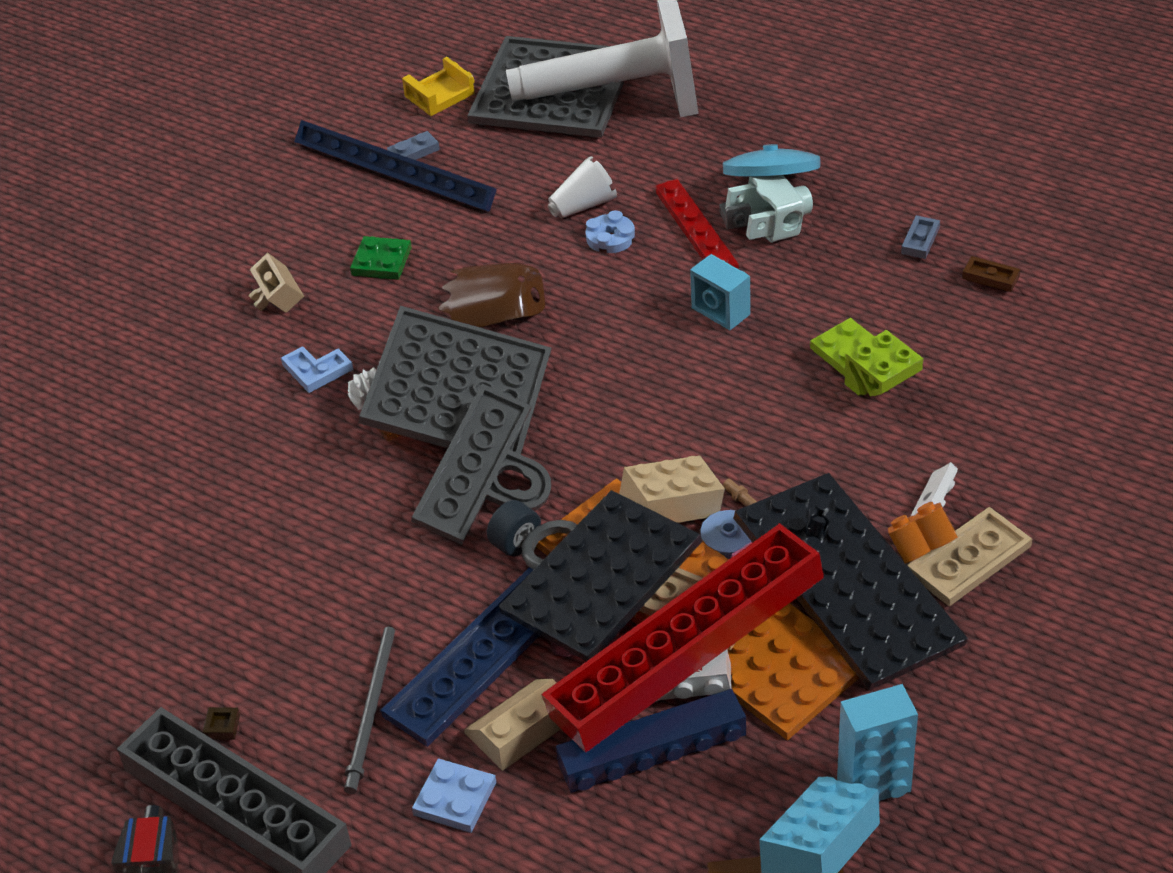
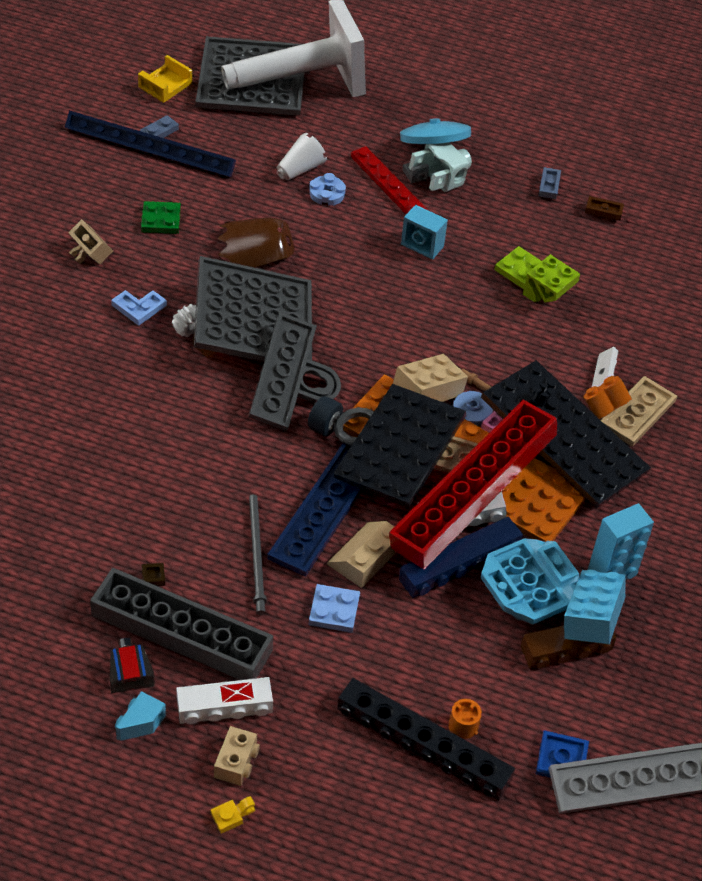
camera: 20 degrees left, 5 degrees up
(739, 756) = (530, 579): none -> medium azure piece

